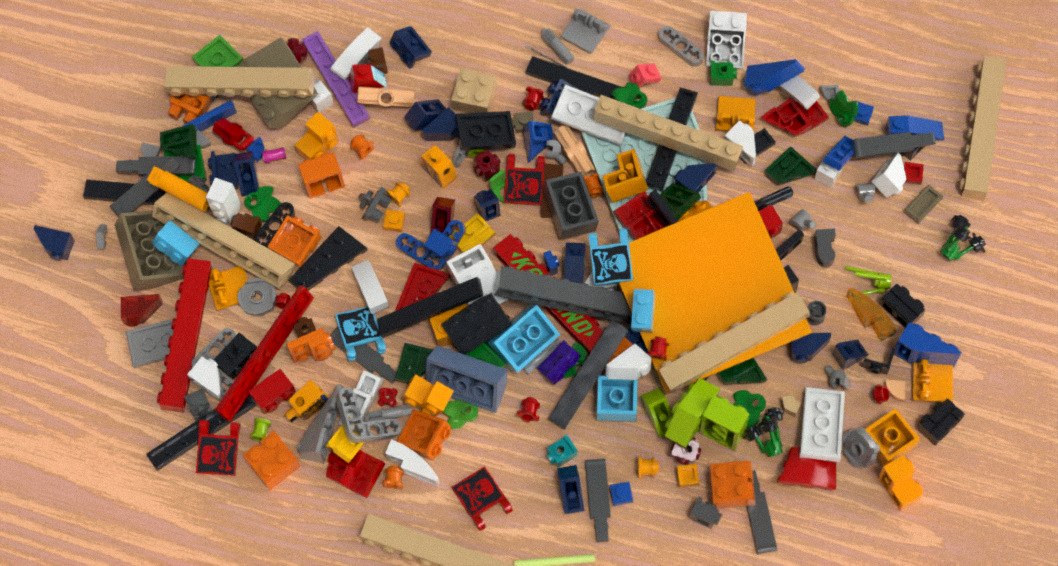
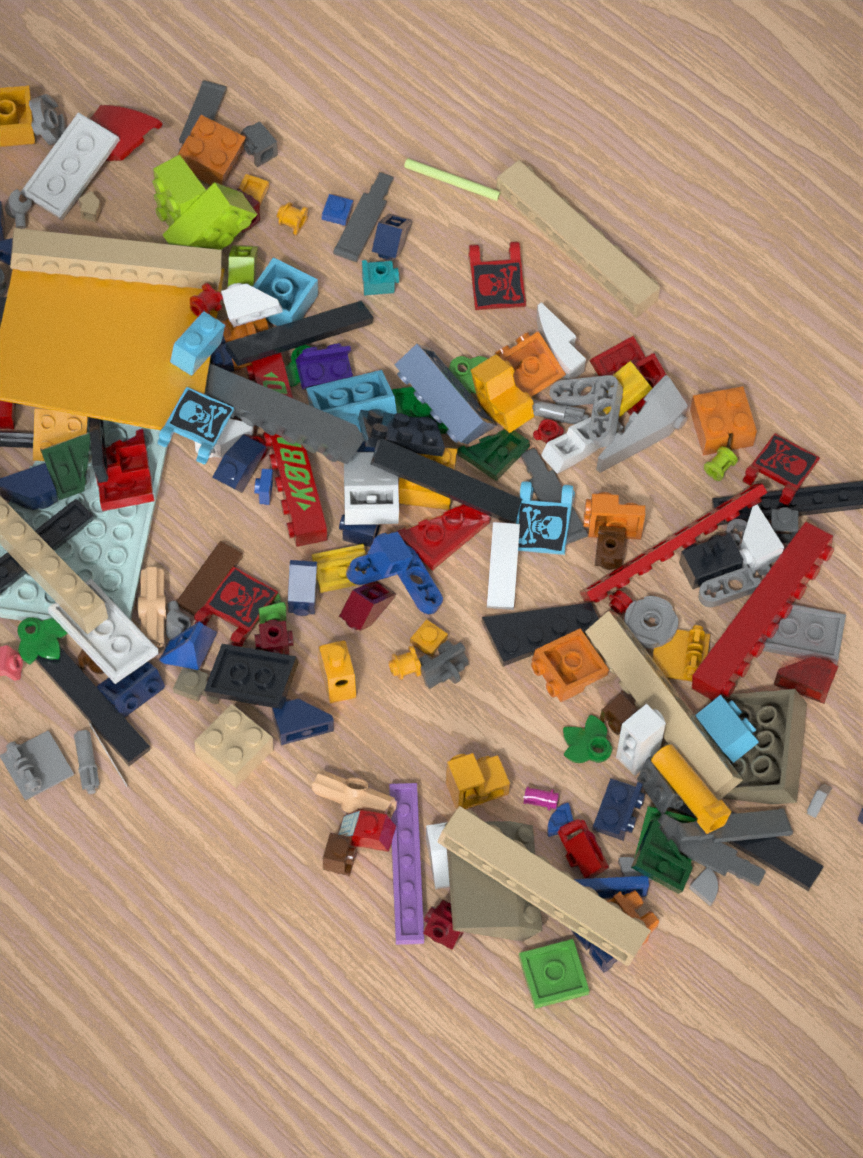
camera: 160 degrees left, 5 degrees down
(246, 172) = (588, 789): dark blue slope -> none
(261, 234) = (565, 705): black beam -> none
(272, 391) = (684, 498): red brick -> none
(306, 401) = (647, 461): light orange torso -> none
(321, 168) = (494, 724): orange piece -> none
(356, 53) = (361, 877): white slope -> none
(362, 146) = (419, 749): orange brick -> none
(393, 477) = (588, 338): orange brick -> none
(409, 46) = (281, 858): dark blue bracket -> none
(423, 113) = (313, 749): dark blue slope -> none
(459, 156) = (302, 677): light grey tile -> none
(529, 410) = (389, 336): red brick -> none
(533, 98) = (163, 701): red brick -> none
(570, 205) = (200, 534): dark grey brick -> none
(593, 185) = (157, 553): orange brick -> none
(627, 180) = (113, 515): light orange brick -> none
(746, 400) = (142, 225): green plate -> none
(768, 424) = (135, 174): plant -> none
(899, 482) = (28, 68): light orange brick -> none

